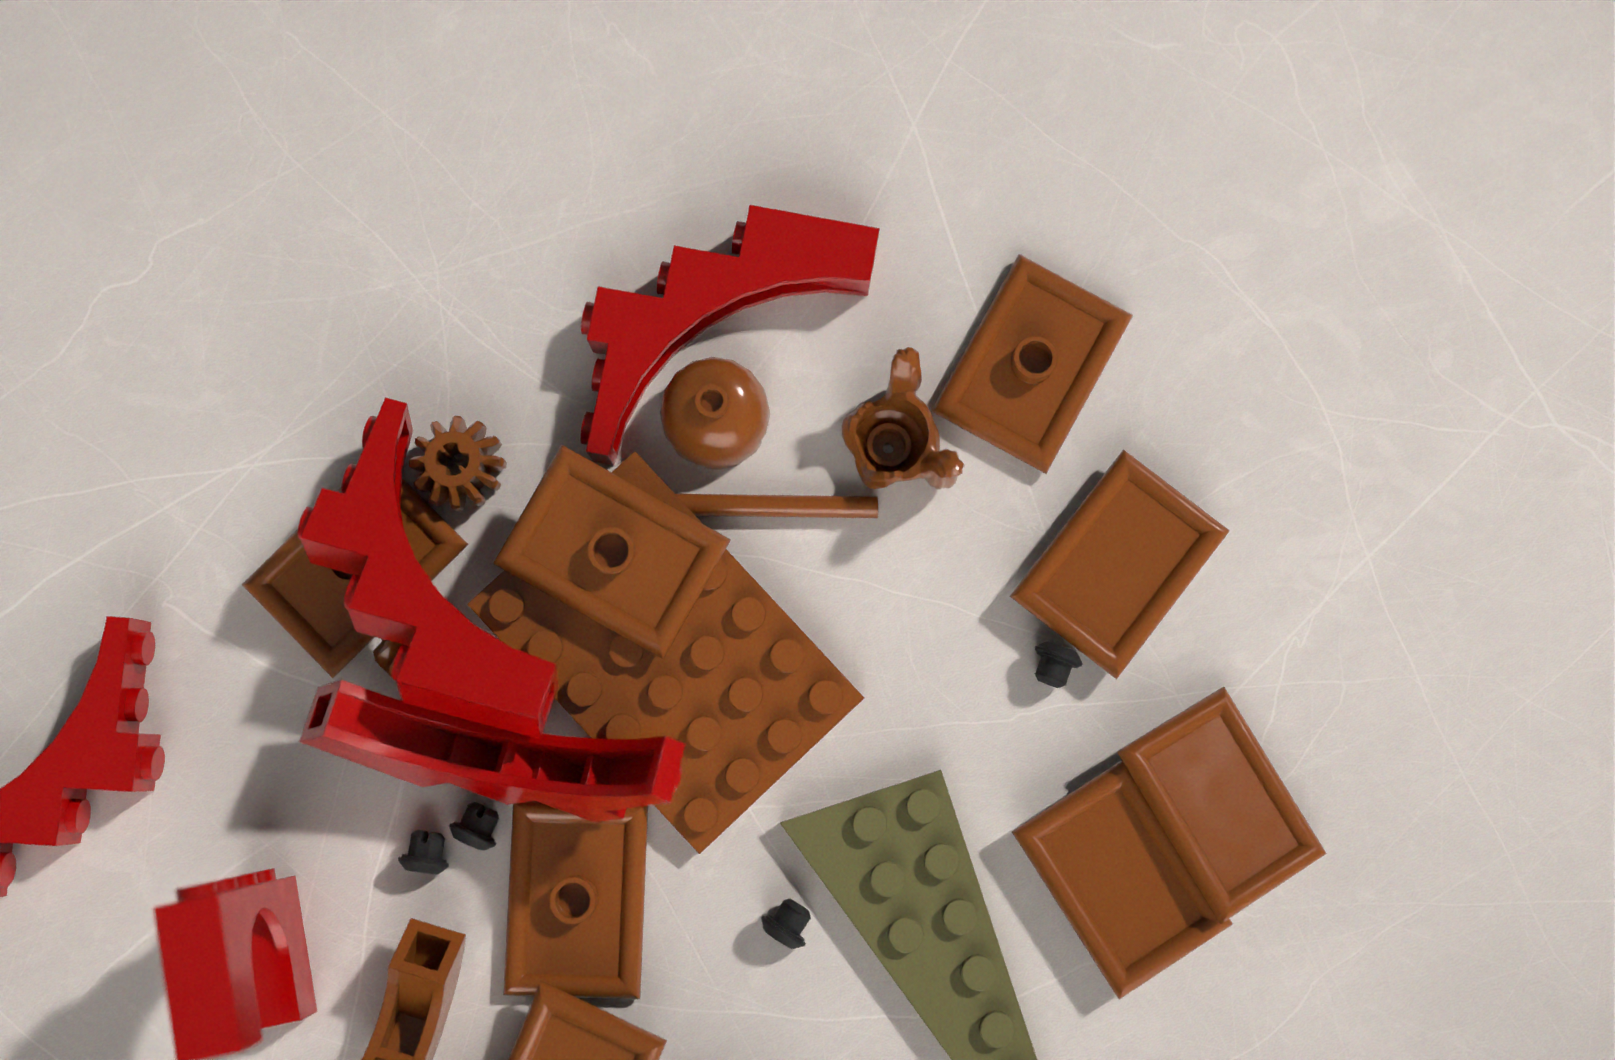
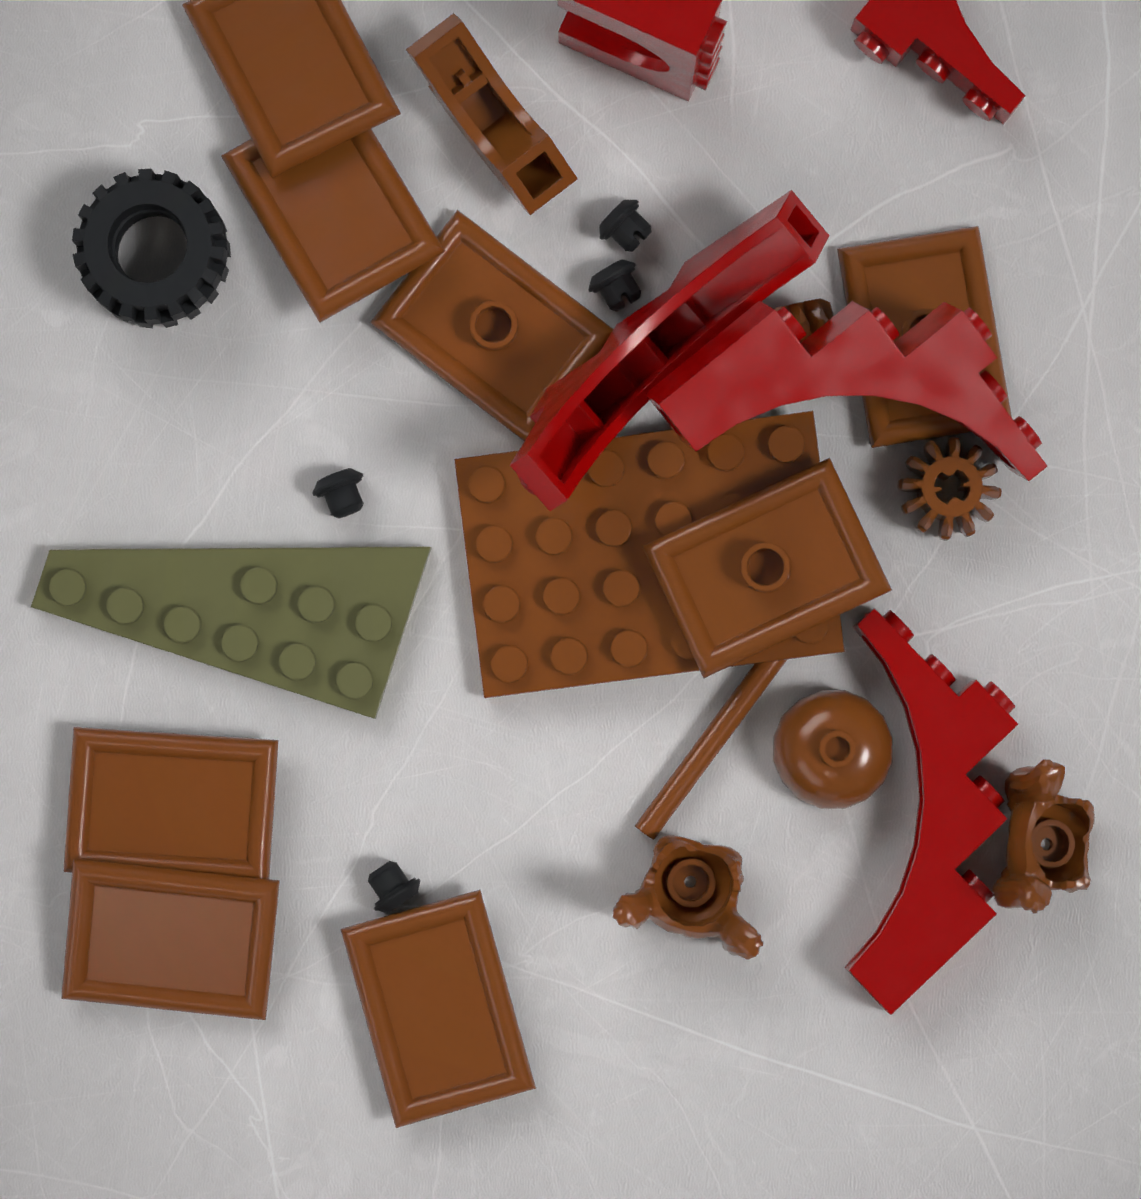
camera: 130 degrees right, 5 degrees up
(698, 203) = (1036, 816): none -> dark orange hair
(1032, 363) = (673, 1068): dark orange piece -> none

